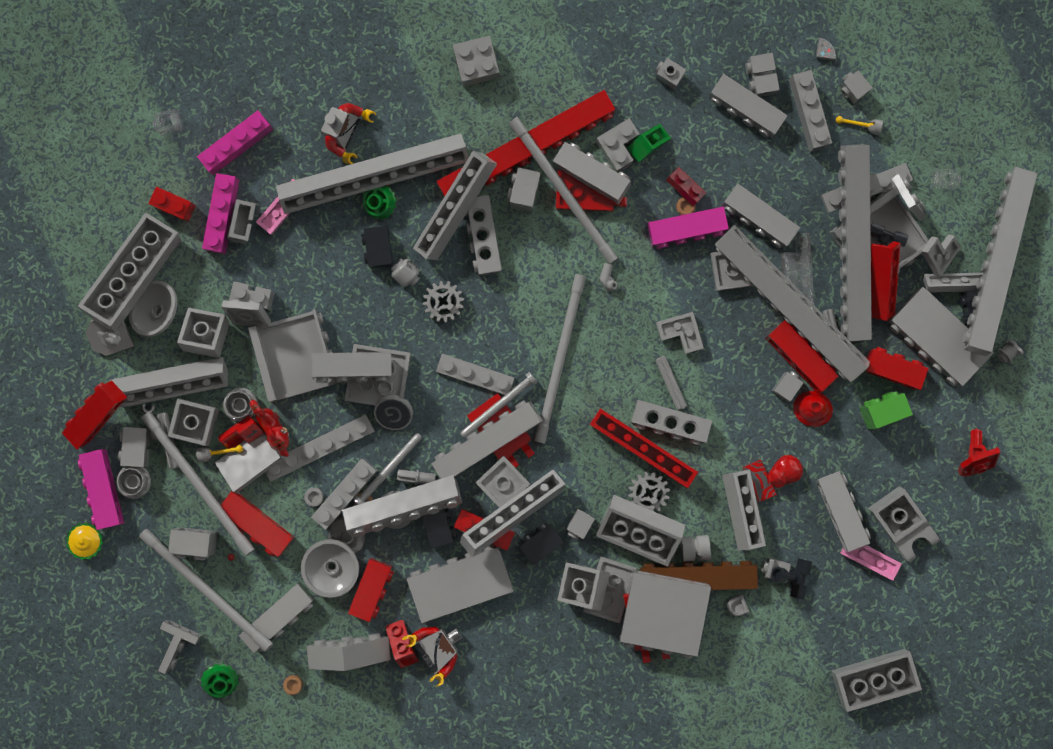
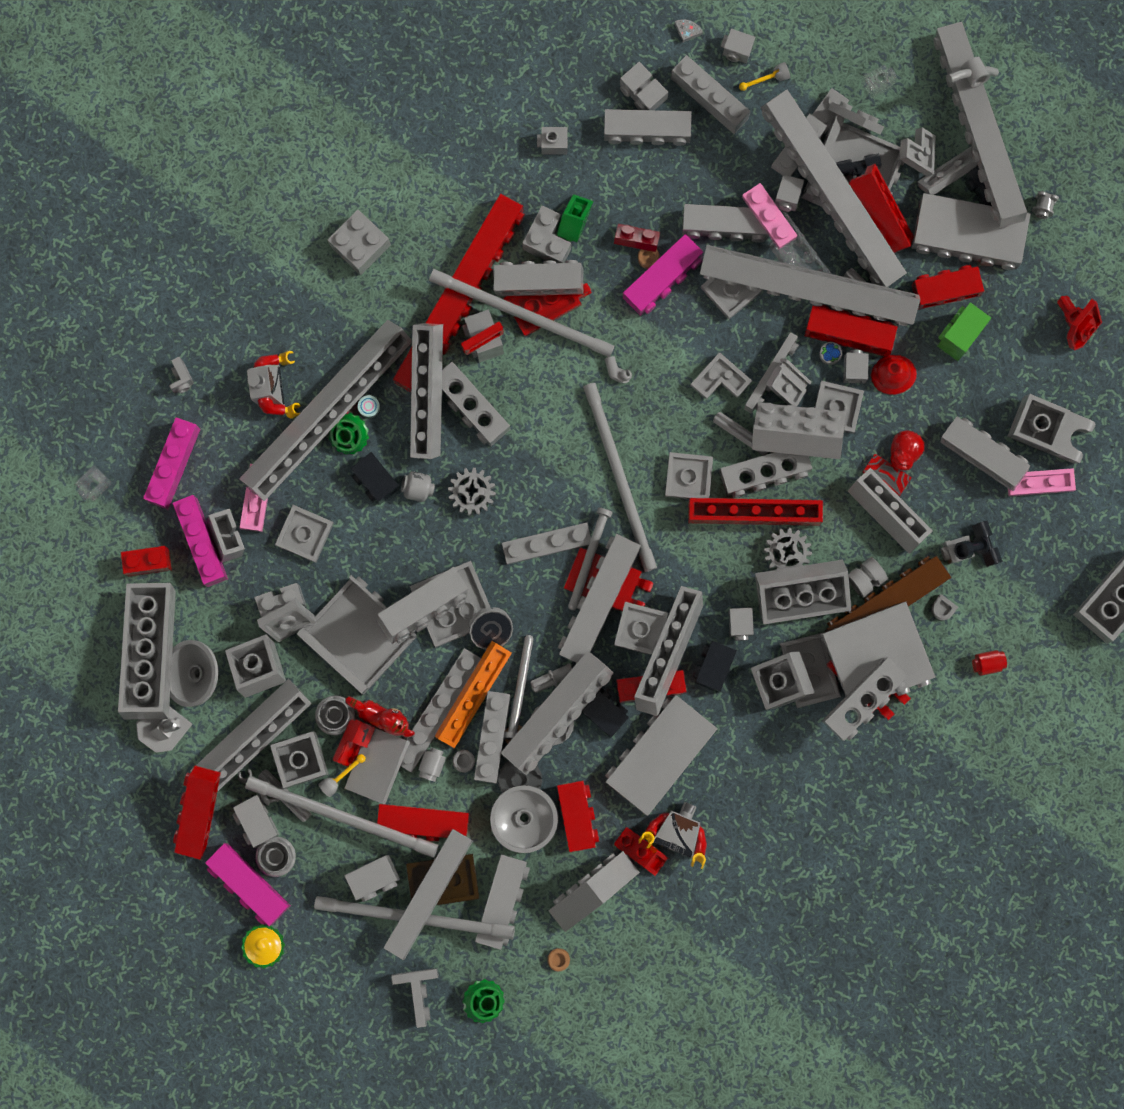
camera: 30 degrees left, 5 degrees down
(225, 580) = (428, 894): none -> light grey tile
(243, 575) = (461, 886): none -> dark brown plate
(284, 79) = (180, 372): none -> light grey bracket
(288, 485) = (431, 764): none -> light grey brick
(301, 256) = (304, 533): none -> light grey plate
(350, 452) = (473, 694): none -> orange plate
(407, 190) = (368, 406): none -> light aqua tile
(519, 193) = (482, 338): none -> red tile
(611, 390) = (688, 476): none -> light grey plate
(623, 636) = (836, 718): none -> light grey brick
(713, 408) = (798, 430): none -> light grey brick
(714, 356) = (788, 347): none -> light grey plate
(729, 367) = (788, 383): none -> light grey plate
(746, 667) = (989, 662): none -> red brick
(754, 407) = (841, 398): none -> light grey plate
(775, 363) = (830, 353): none -> tile
(795, 232) = (769, 216): none -> bright pink plate
(821, 224) = (789, 193): none -> light grey brick
(1021, 219) = (974, 72): none -> light grey piece

